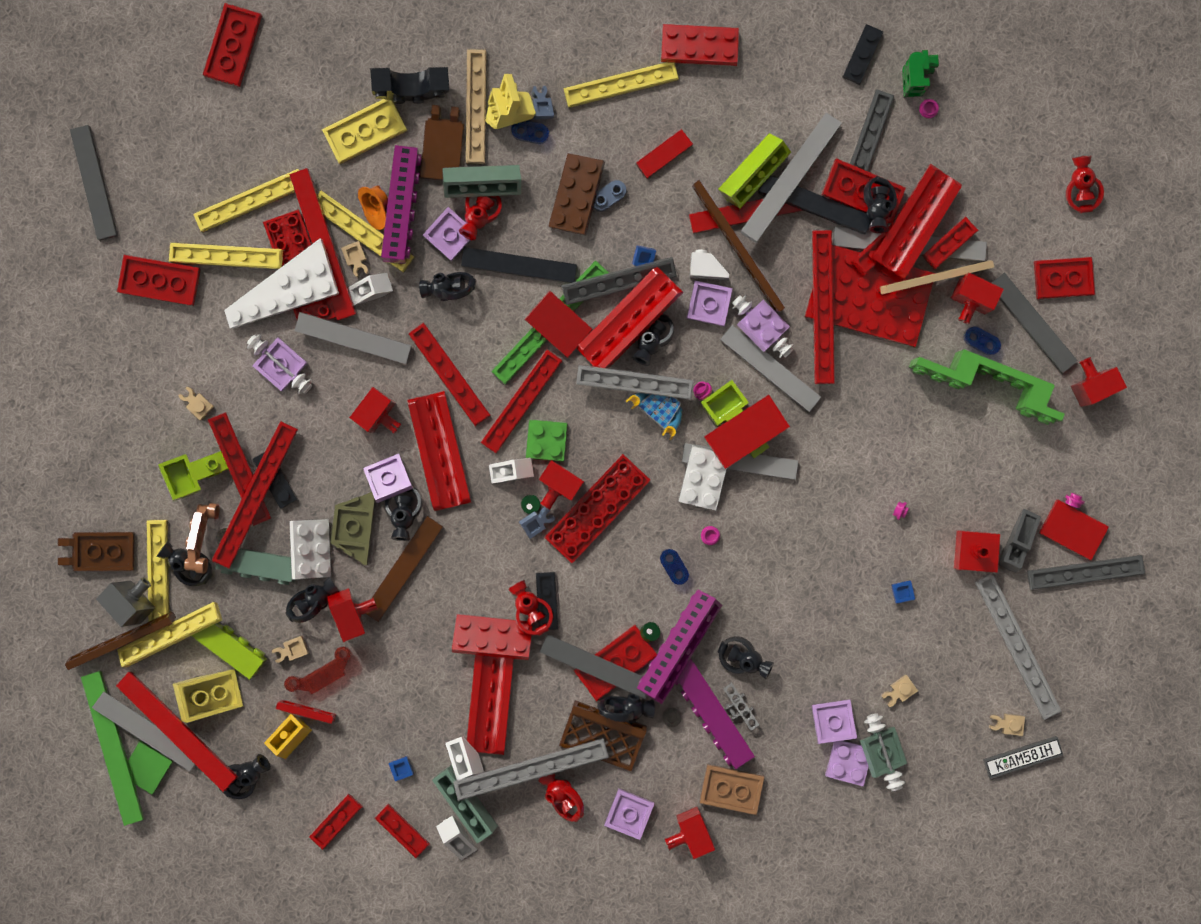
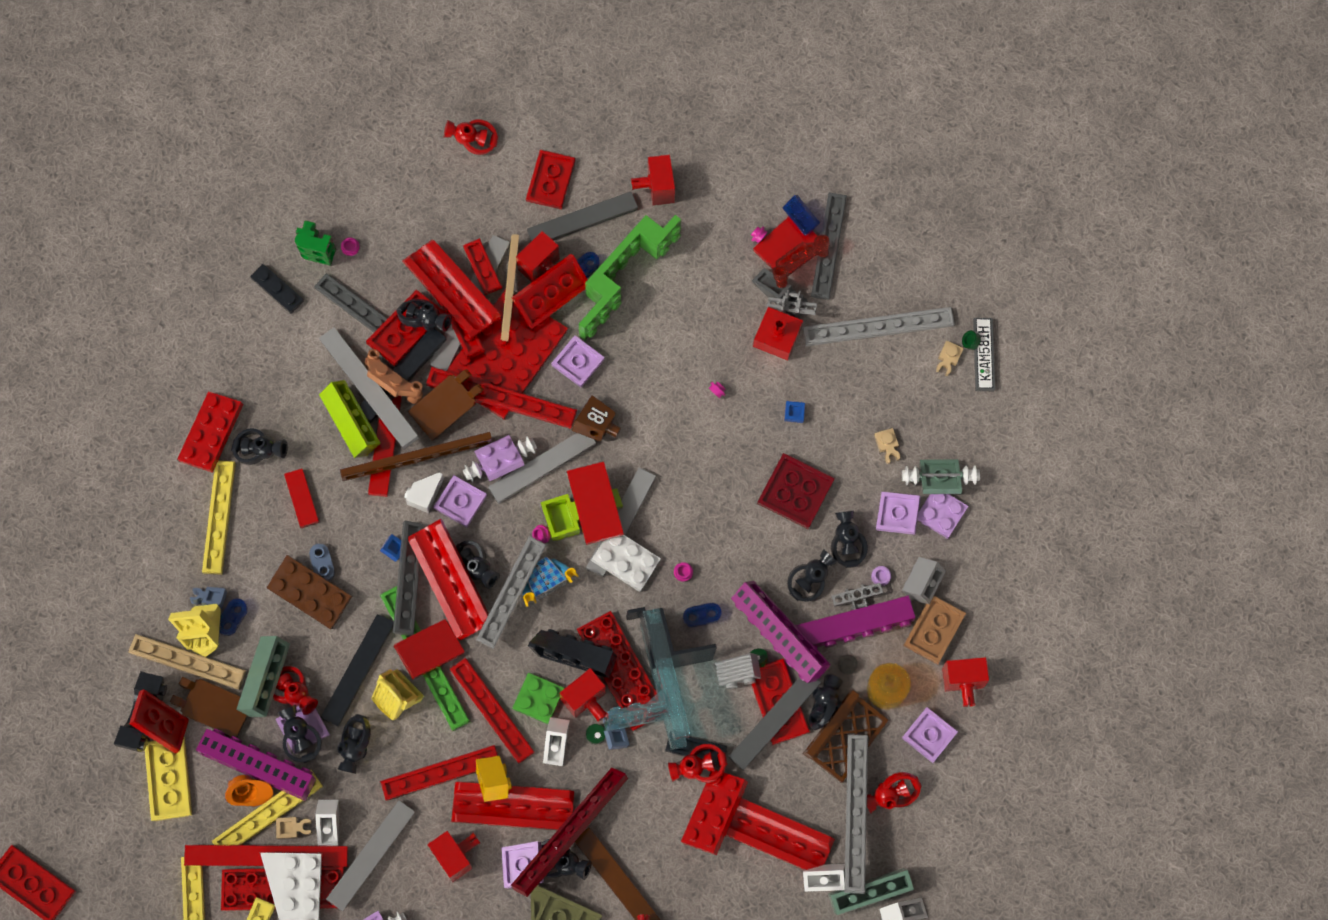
camera: 75 degrees left, 15 degrees down
(407, 101) = (159, 721): none -> red tile
(428, 511) = (569, 832): none -> dark red plate
(441, 229) = (298, 736): none -> black piece
(455, 424) = (492, 778): none -> yellow brick
(507, 308) = (395, 694): none -> light yellow piece
(596, 459) = (573, 652): none -> black wedge
(616, 543) = (662, 659): none -> clear light blue piece
(630, 617) = (738, 670): none -> light grey brick
(661, 752) = (888, 697): none -> clear yellow wheel
(700, 99) = (263, 447): none -> black piece
(767, 723) = (881, 575): none -> lavender tile
(775, 766) = (924, 580): none -> light grey brick
(796, 679) = (848, 533): none -> black piece
(797, 256) = (444, 404): none -> reddish brown tile
(804, 196) = (391, 380): none -> nougat plate
(824, 617) = (795, 491): none -> dark red plate
(830, 405) = (596, 420): none -> reddish brown torso
(884, 367) = (578, 361): none -> lavender plate
(945, 318) = (550, 291): none -> red plate
(1012, 562) = (798, 304): none -> light grey piece
(1033, 741) = (971, 340): none -> dark green tile
(1062, 547) = (798, 257): none -> clear red plate
(1108, 536) = (801, 215): none -> clear blue tile

